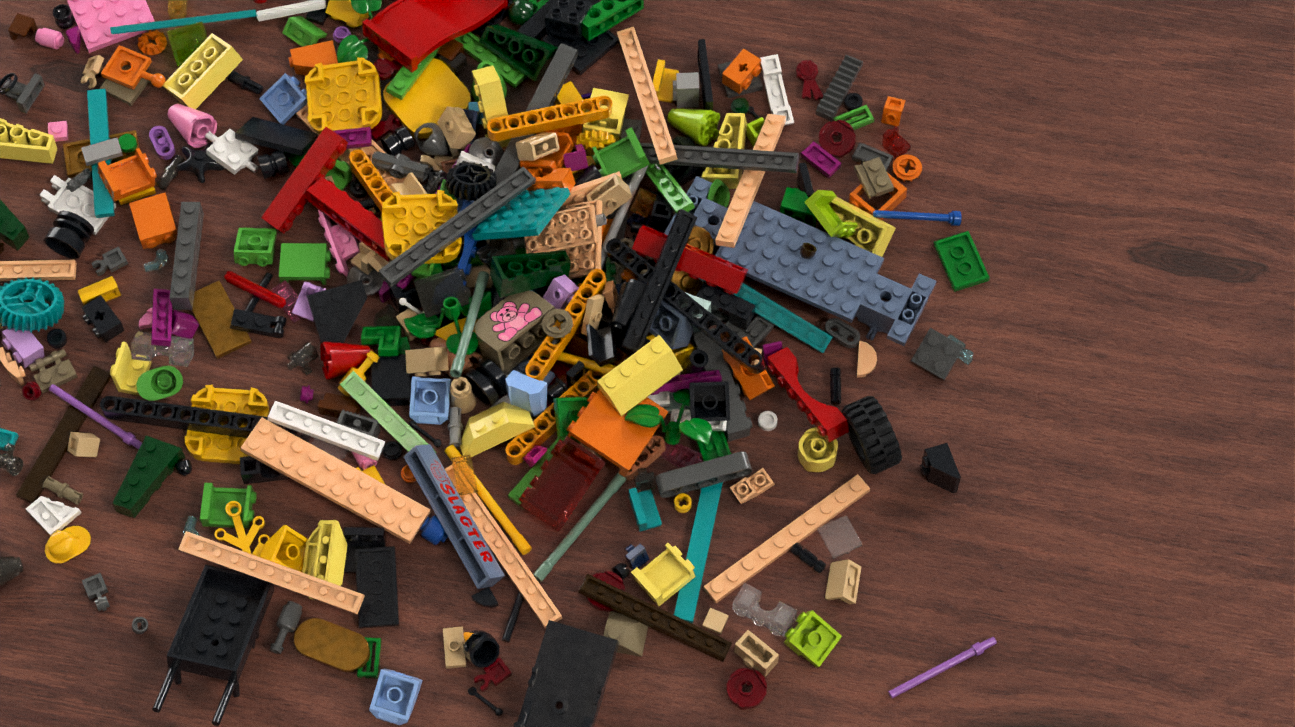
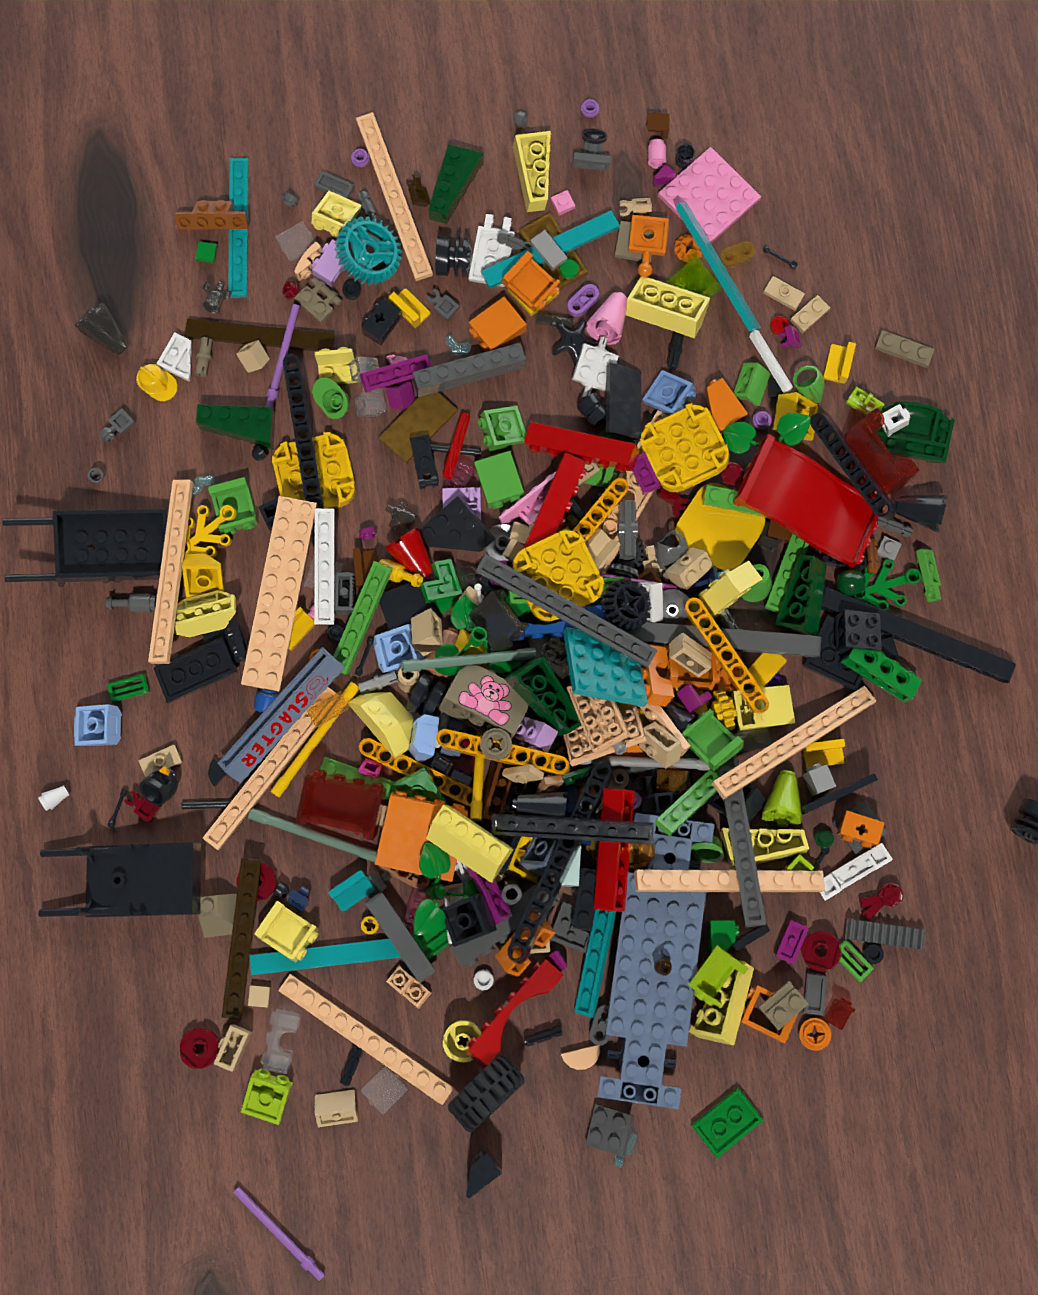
camera: 70 degrees right, 15 degrees up
(332, 645) = (127, 650): pearl gold tile -> none
(398, 141) = (657, 515): black wheel -> none
(601, 345) = (494, 793): black panel -> none
(893, 111) = (877, 999): orange bracket -> none
(953, 217) = (771, 1101): blue piece -> none

